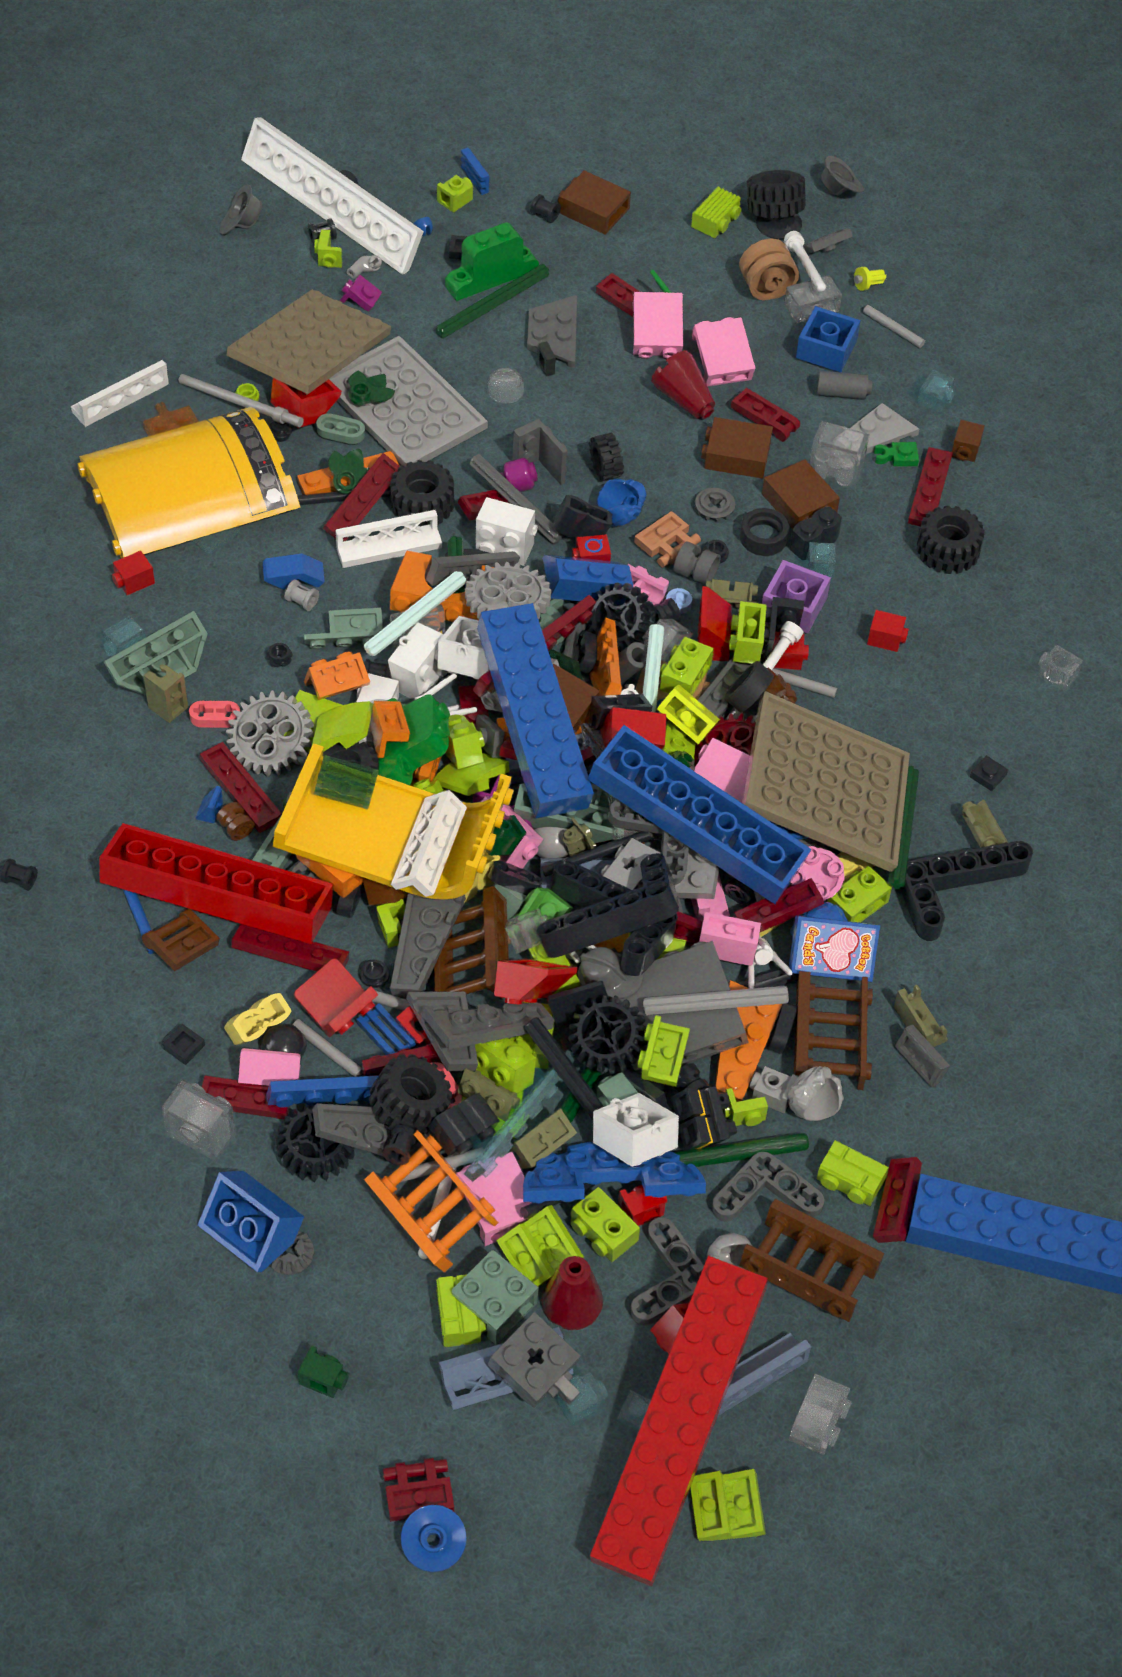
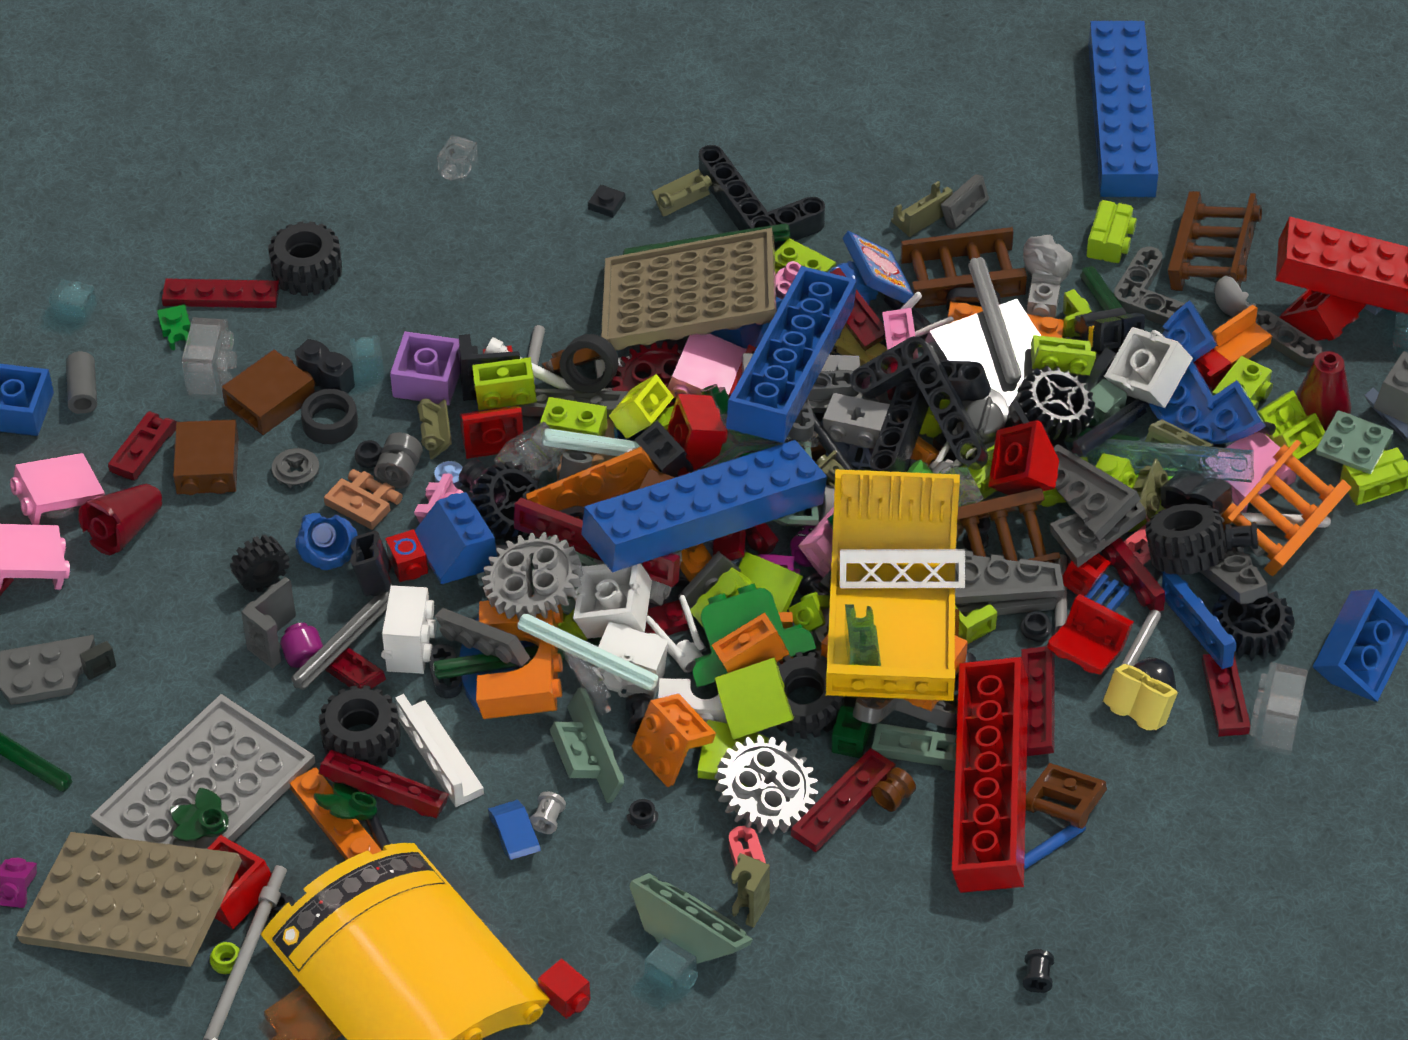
camera: 100 degrees left, 5 degrees down
(184, 1044) = (1187, 761): black plate -> none
(210, 806) = (878, 820): blue slope -> none
(265, 1066) = (1192, 675): bright pink panel -> none
(340, 428) = (266, 844): sand green plate -> none
(505, 385) = (147, 695): clear hair -> none
(664, 1236) = (1241, 336): none -> orange panel
(820, 1413) = (1358, 213): clear brick -> none
(884, 427) = (144, 349): light grey wing -> none
(887, 631) = (447, 295): red brick -> none
(897, 1200) = (1142, 198): dark red plate -> none
(967, 440) = (148, 266): reddish brown brick -> none

